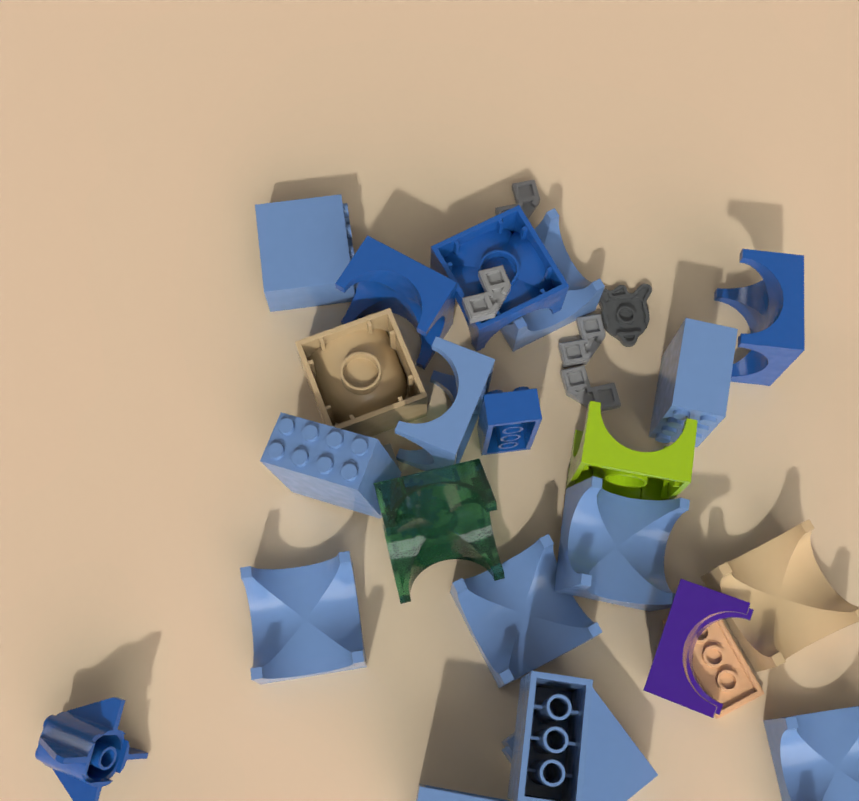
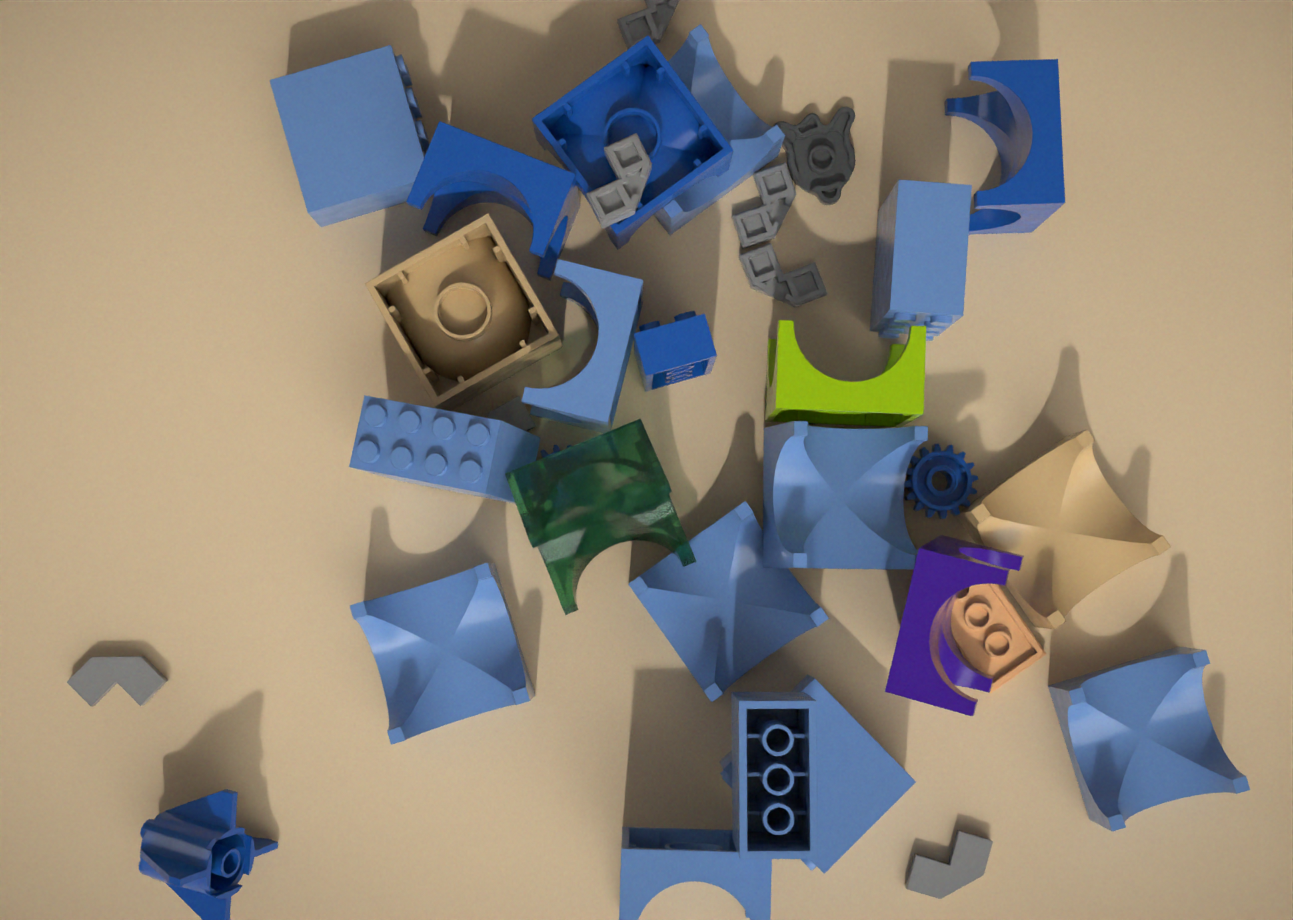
camera: 10 degrees left, 15 degrees up
(67, 604) = (132, 673): none -> light grey tile
(704, 543) = (958, 481): none -> blue gear

